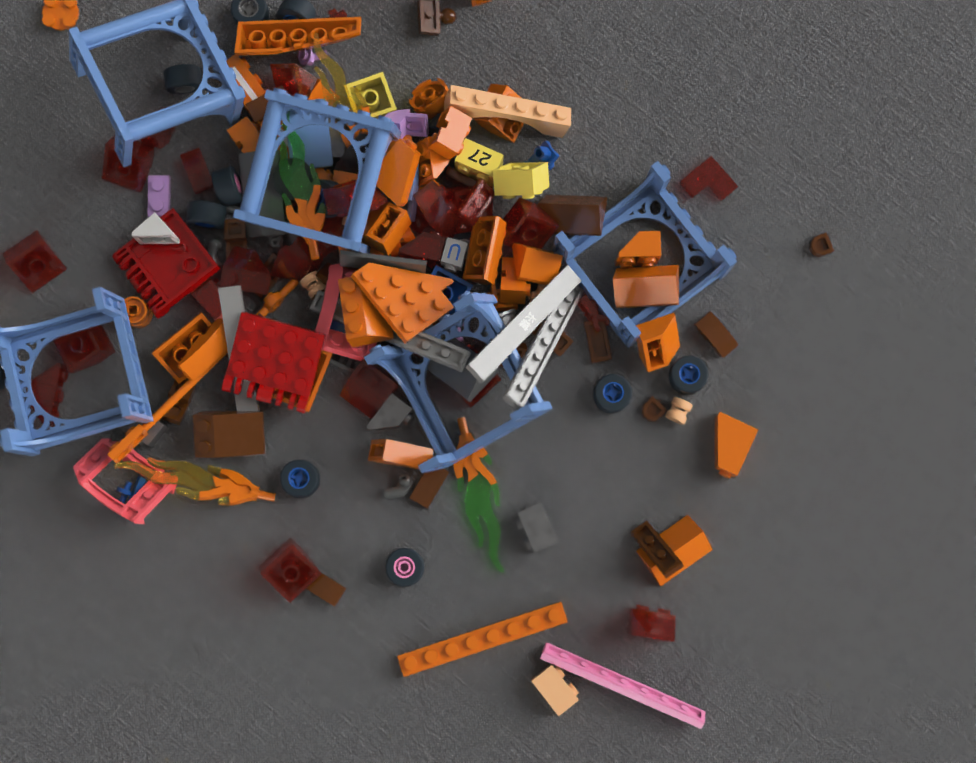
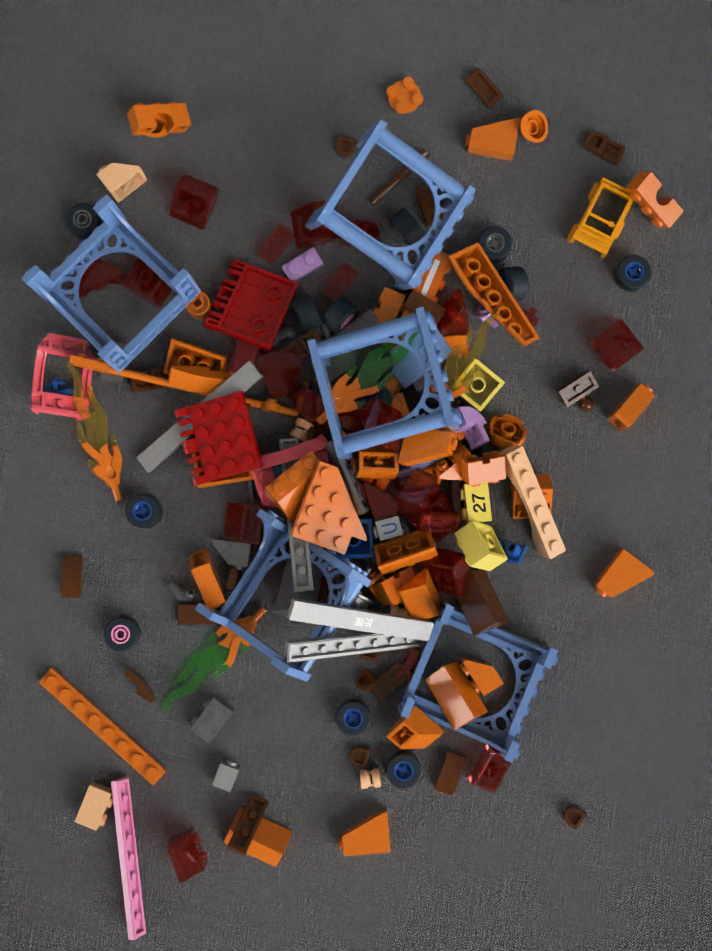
camera: 60 degrees right, 5 degrees up
(72, 93) = (345, 146): none -> reddish brown tile
(123, 208) = (275, 244): none -> clear red plate
(133, 69) = (395, 180): none -> reddish brown bar
(154, 231) = (270, 282): white slope -> none
(174, 49) = (426, 204): none -> reddish brown tile
(228, 433) = (144, 435): reddish brown slope -> none
(289, 570) = (68, 546): clear red slope -> none
(416, 429) = (234, 578): none -> reddish brown tile
(471, 578) = (144, 689): none -> reddish brown slope
(586, 362) = (366, 681): none -> reddish brown tile
(598, 544) = (226, 775): none -> light grey brick
(622, 73) = (621, 574): none -> orange slope
(710, 175) = (579, 692): clear red tile -> none
(733, 295) = (489, 770): none -> clear red slope

